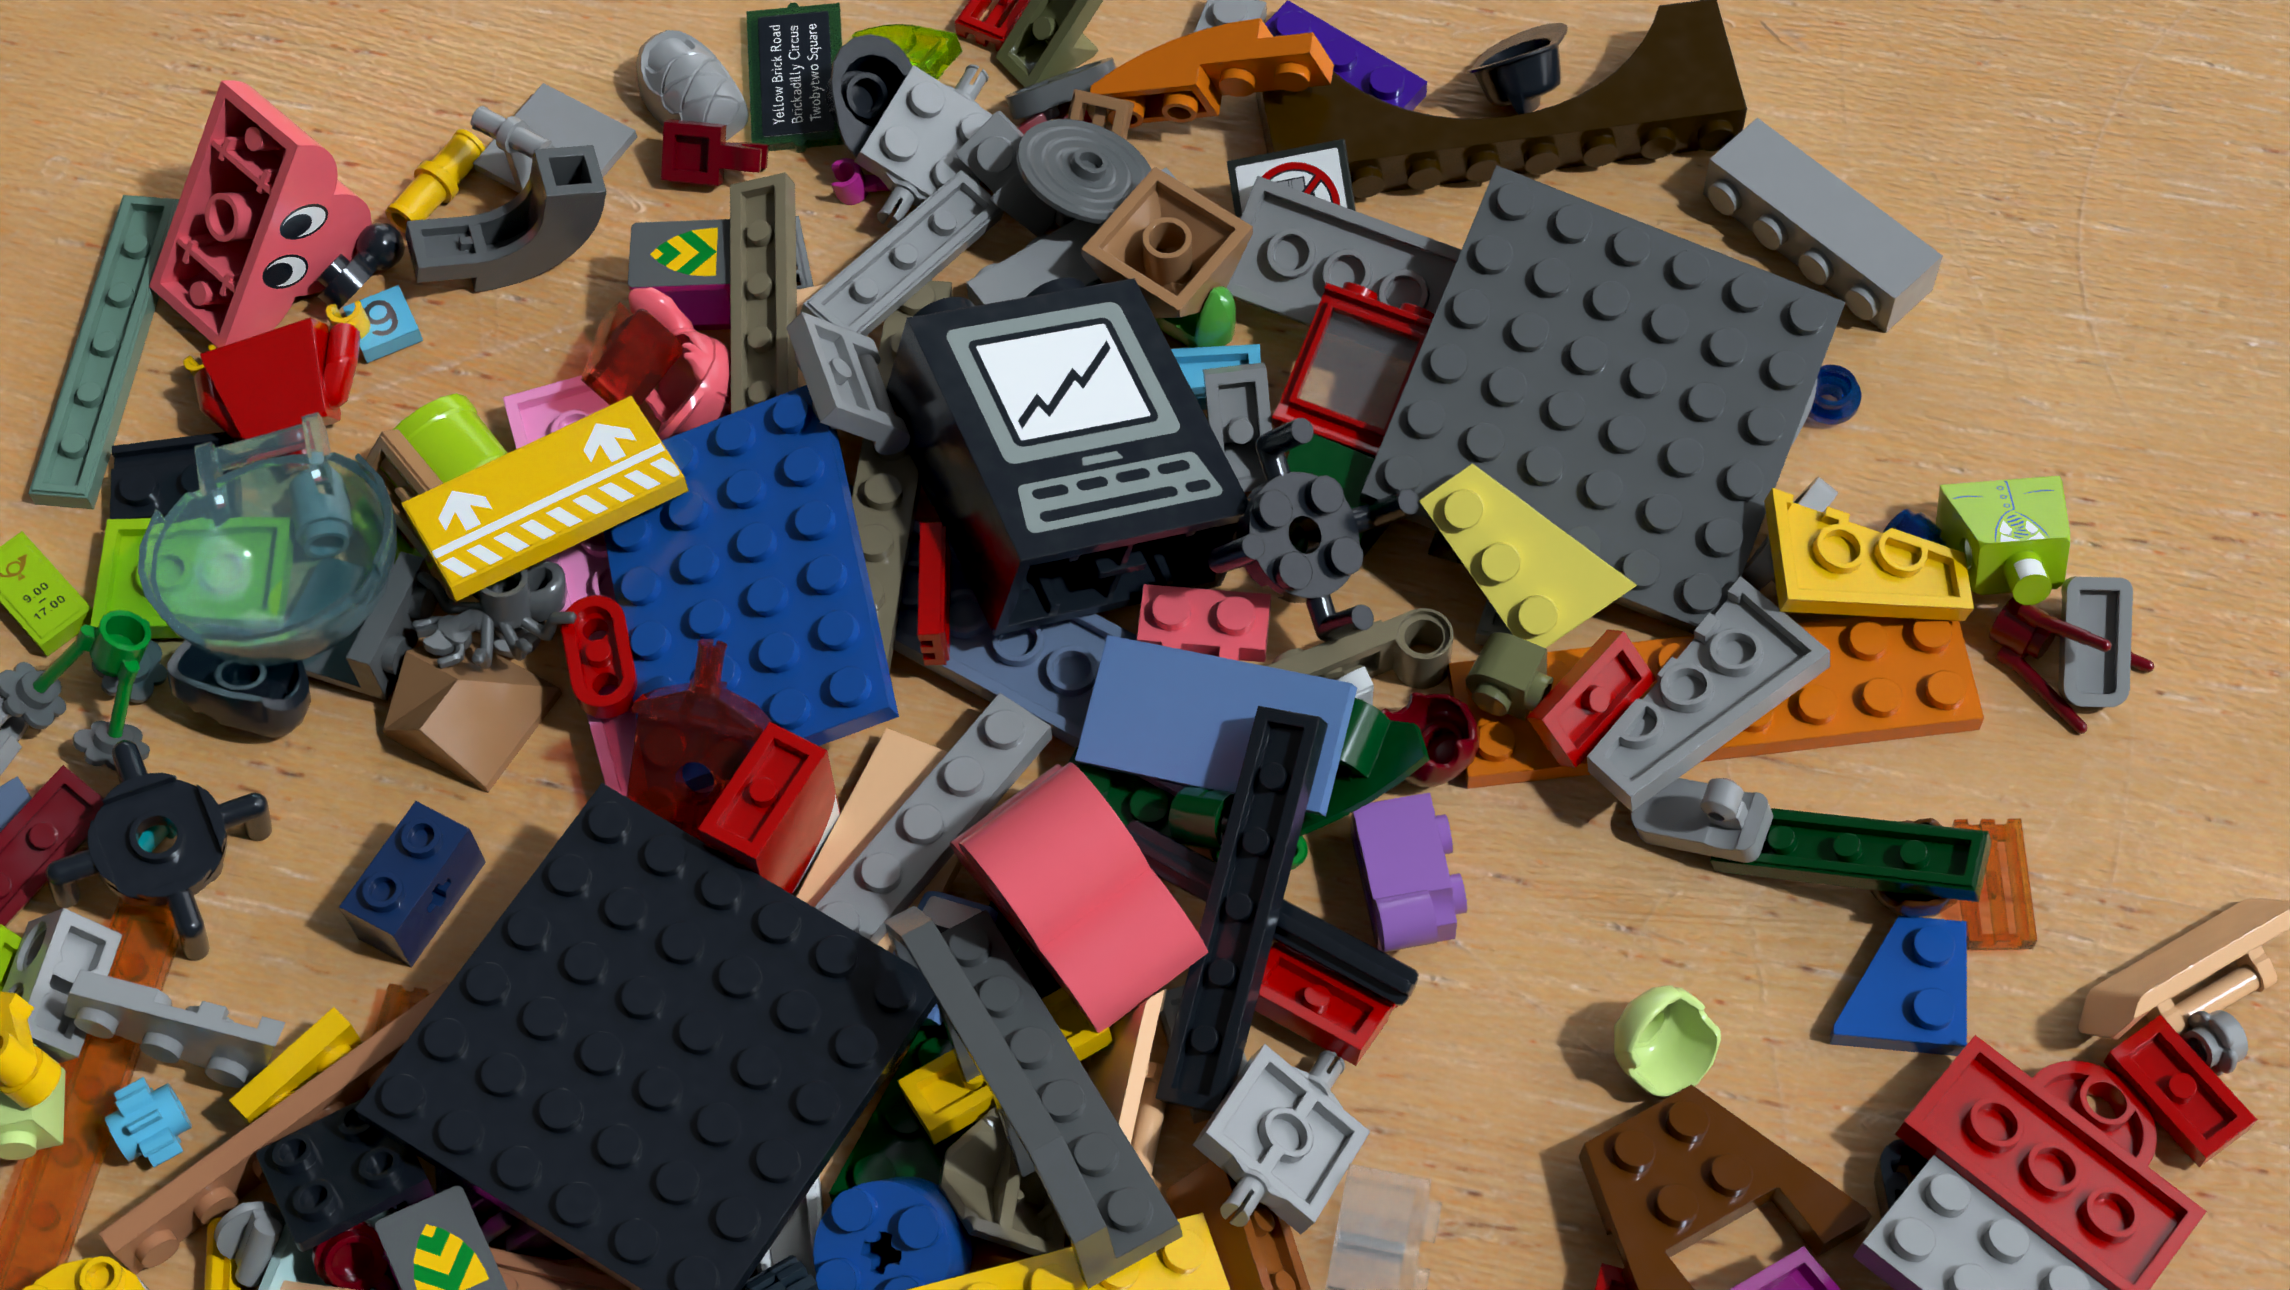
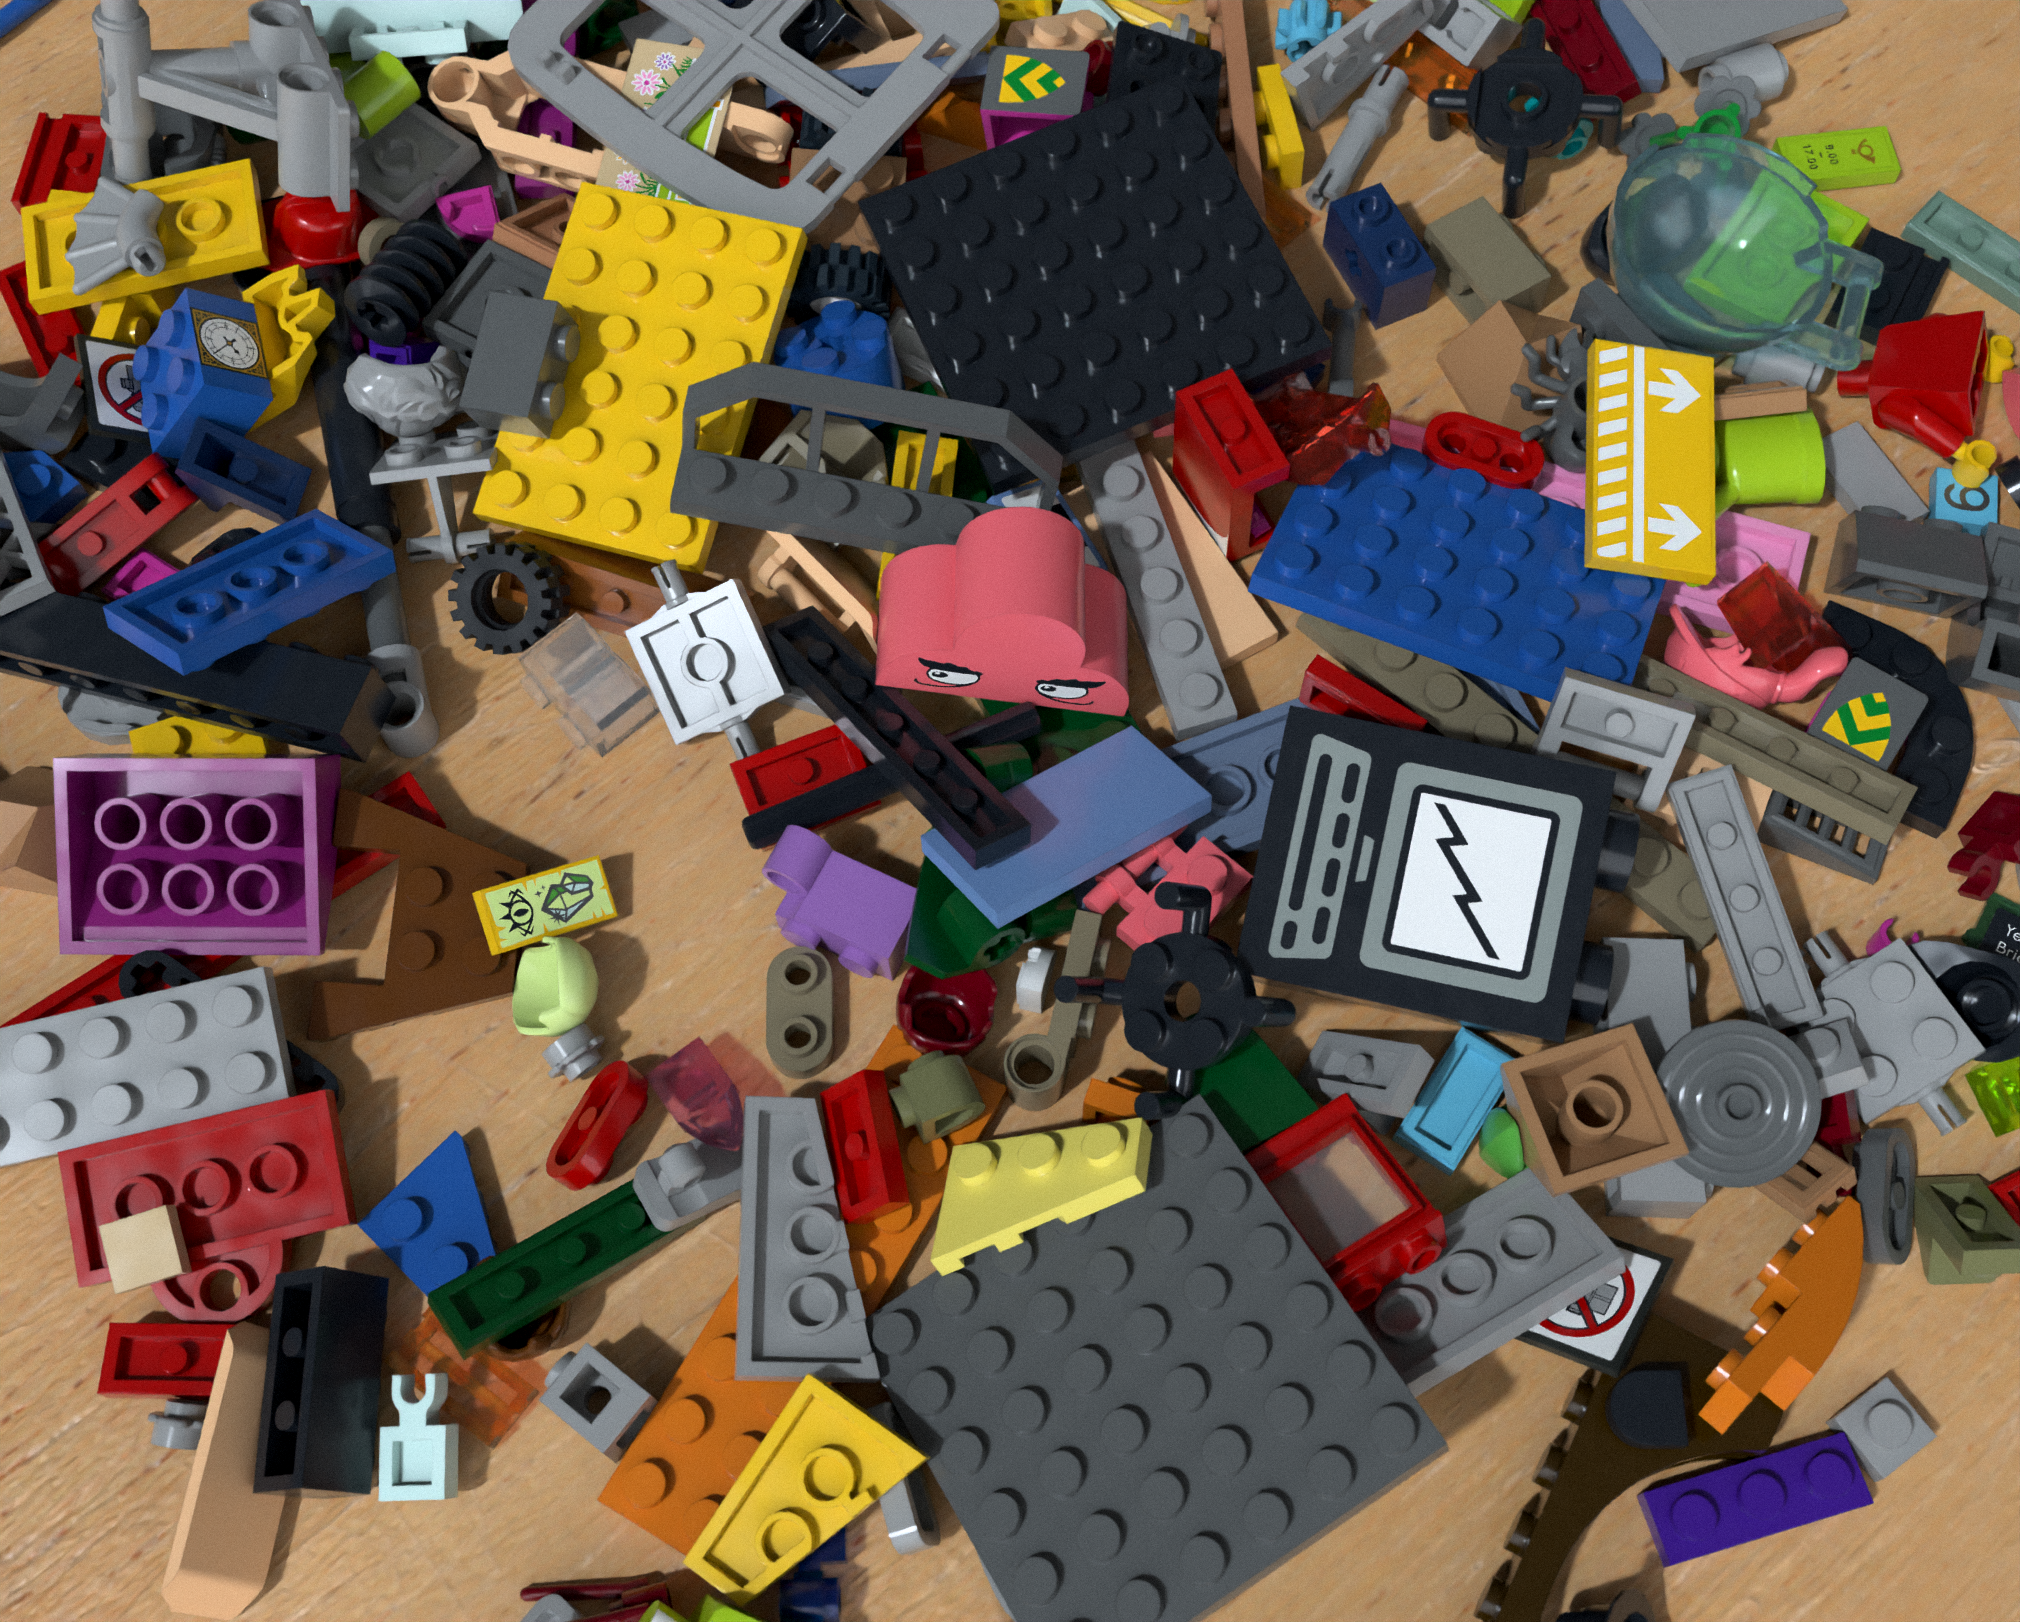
camera: 125 degrees right, 5 degrees up
(281, 996) = (1367, 121): none -> light grey pin
(364, 789) = (1484, 261): none -> dark tan brick
(415, 379) = (1863, 475): none -> light grey tile
(498, 306) = (1907, 563): none -> dark grey slope
(515, 869) = (1343, 325): none -> dark grey arm
(599, 271) = (1941, 741): none -> black plate
(1348, 116) = (1648, 1410): none -> black tile
(1399, 572) = (1111, 1101): none -> orange plate
(1517, 857) = (800, 1008): none -> dark tan plate
(1604, 1100) = (544, 904): none -> tile
(1649, 860) = (700, 1096): none -> clear pink plate
(1705, 986) = (574, 1053): none -> light grey plate
(1733, 928) = (595, 1128): none -> red plate
(1923, 761) = (576, 1380): none -> light grey brick
(2068, 859) = (420, 1454): none -> light aqua plate
(2095, 950) = (322, 1384): none -> black brick
(2136, 1167) = (145, 1249): none -> tan tile

